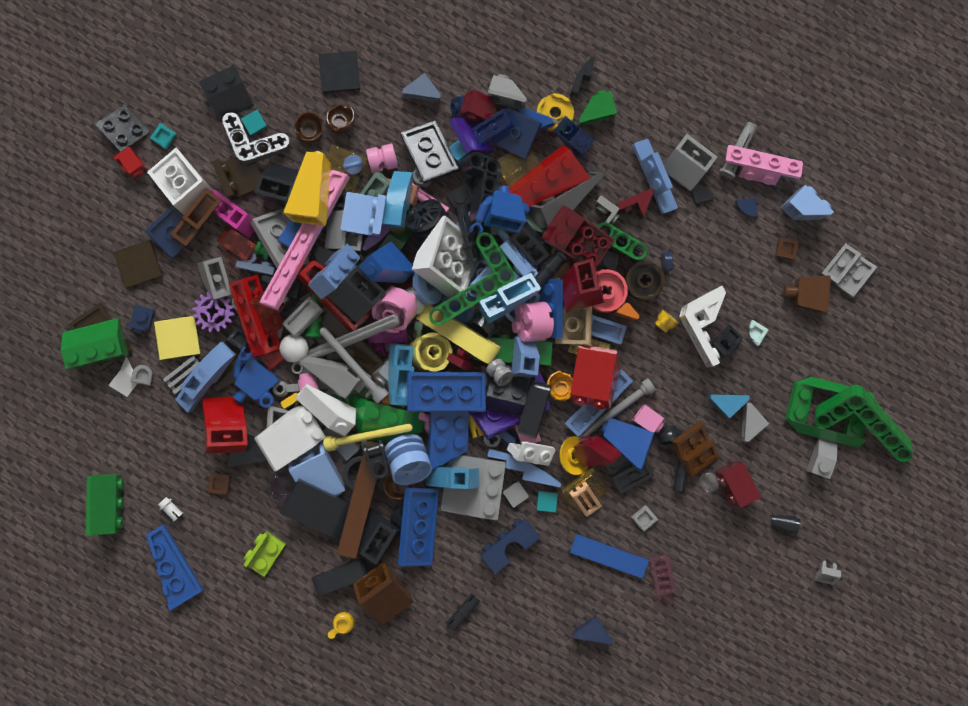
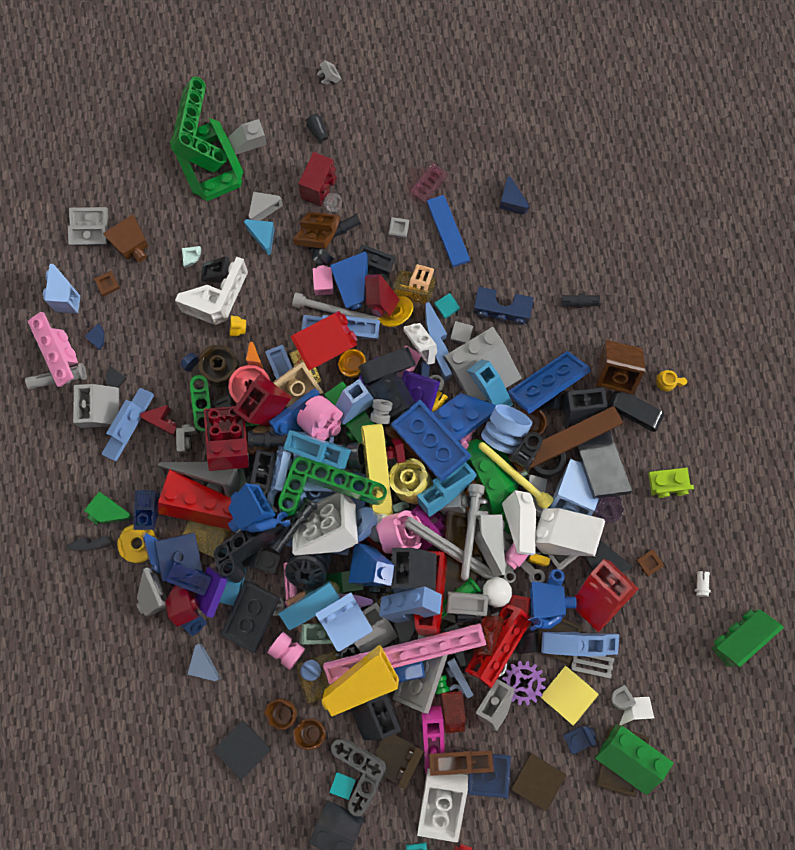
camera: 135 degrees left, 10 degrees down
(172, 567) = (745, 538): blue wing -> none

